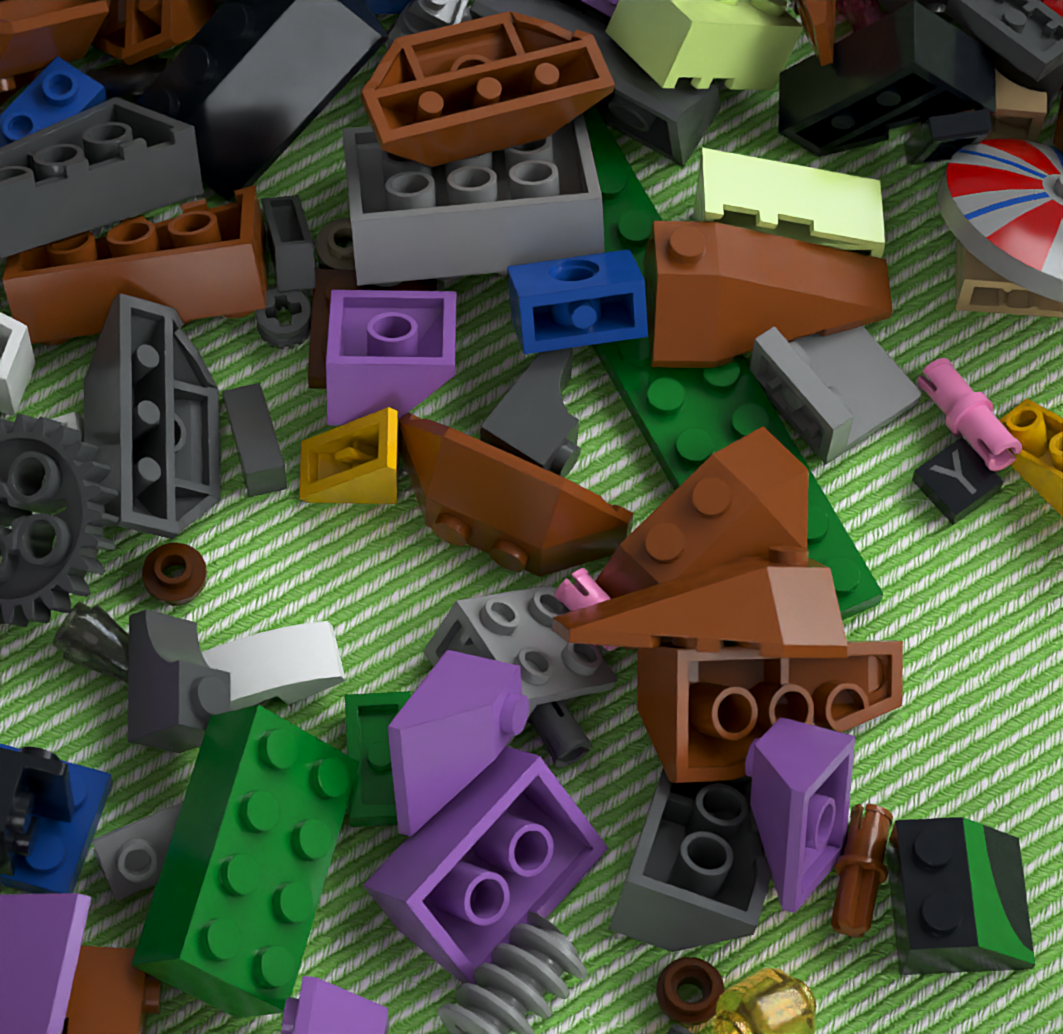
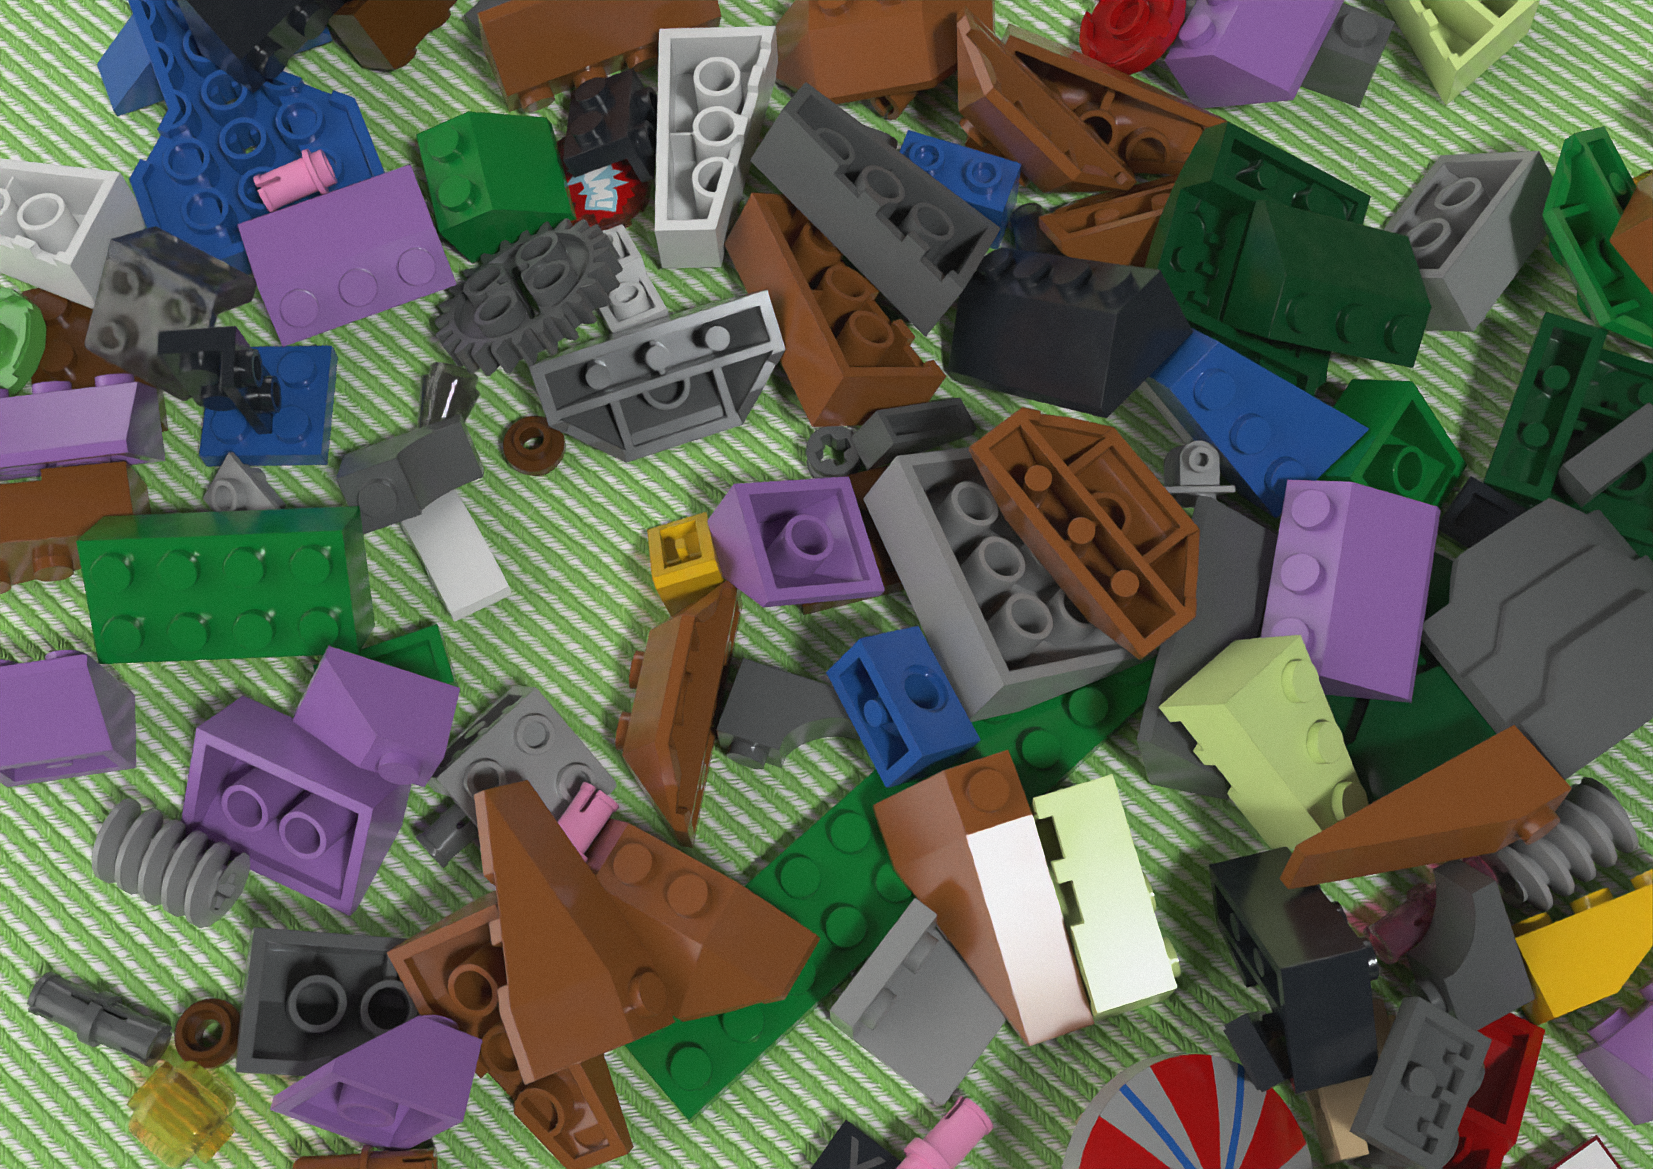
camera: 80 degrees right, 5 degrees up
(255, 440) = (695, 470): dark grey piece -> none

